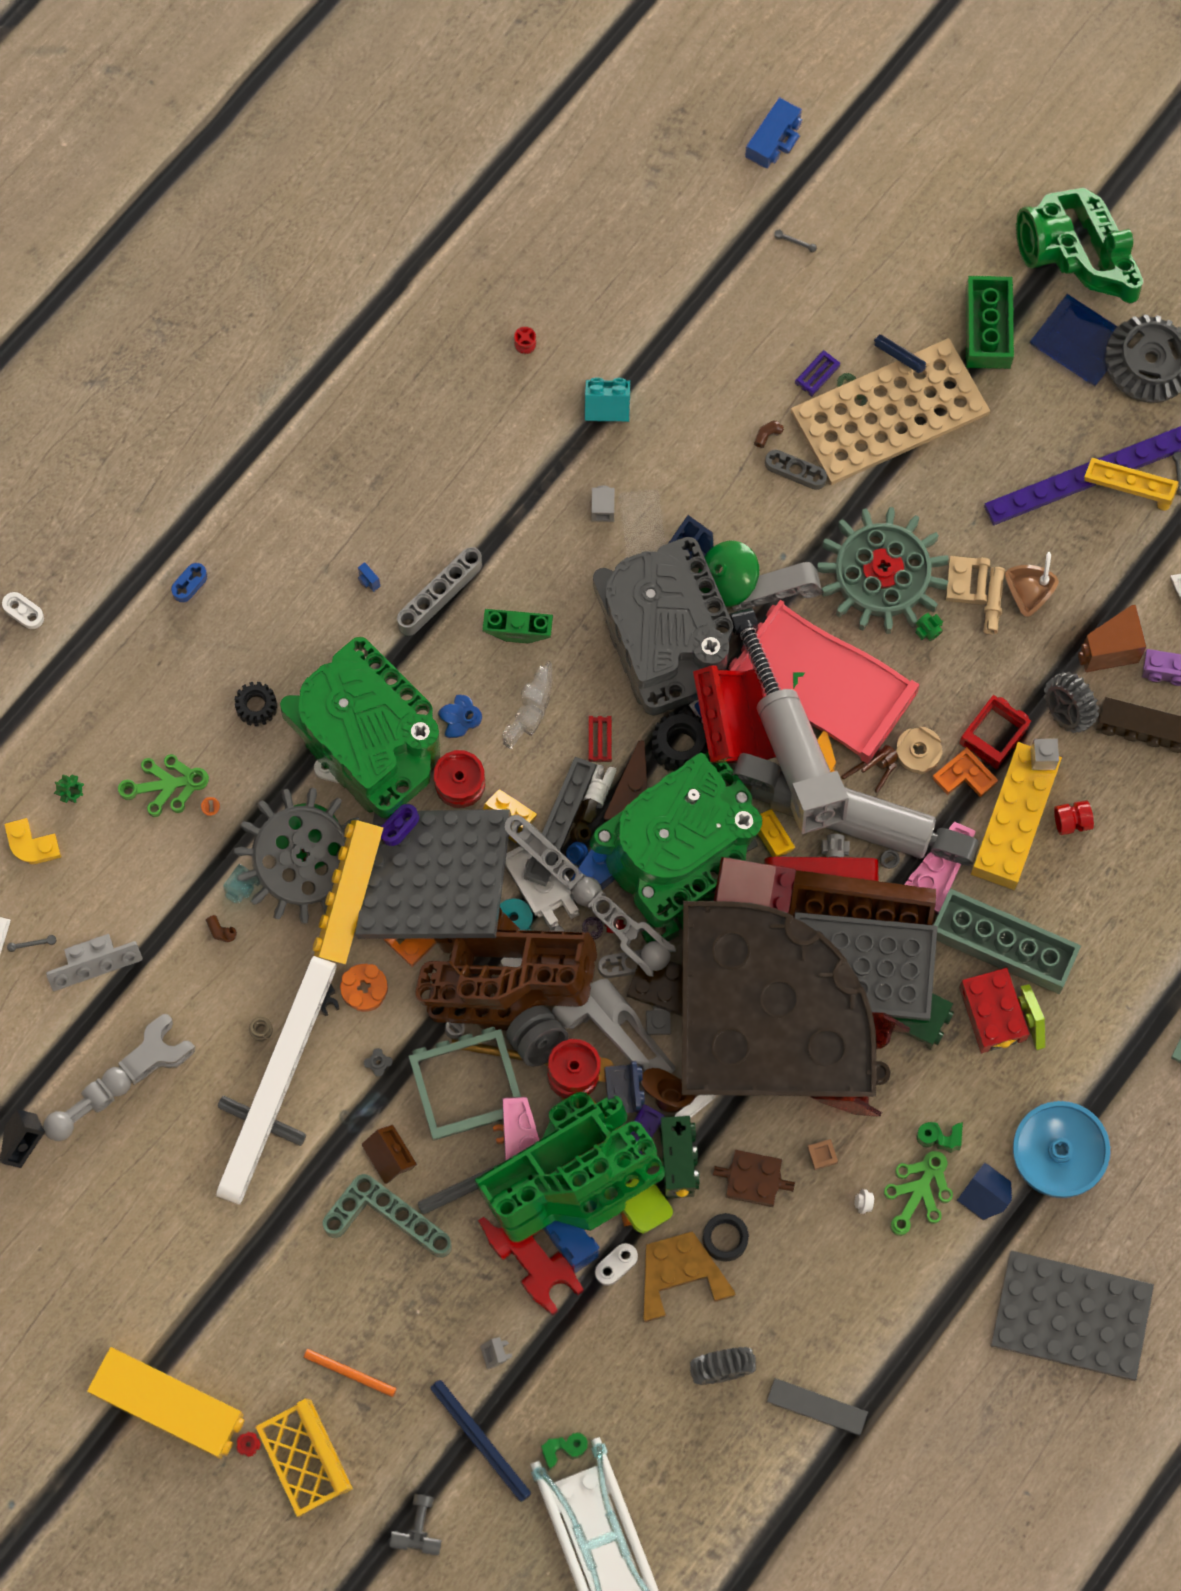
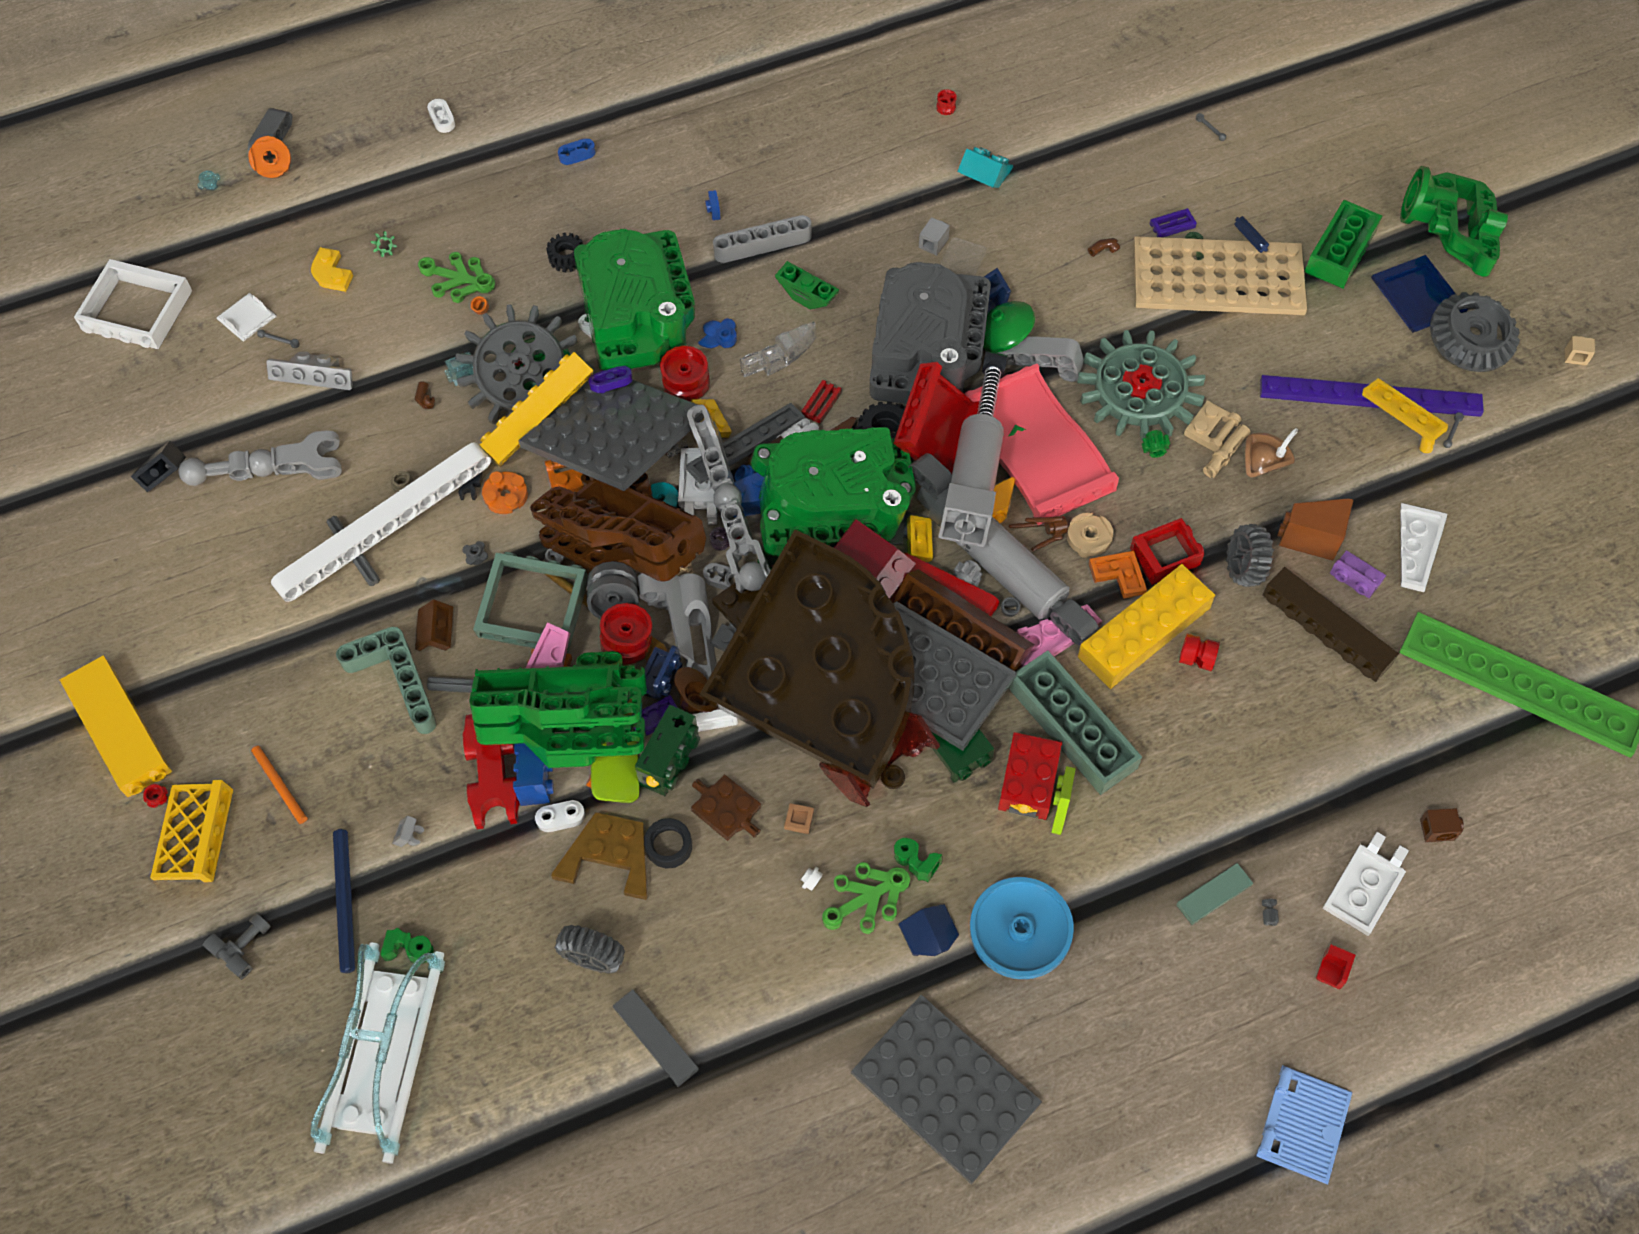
camera: 30 degrees right, 10 degrees down
(768, 139) = (1239, 47): blue piece -> none
(799, 478) = (1113, 290): dark grey beam -> none
(1044, 754) = (1198, 579): light grey brick -> none

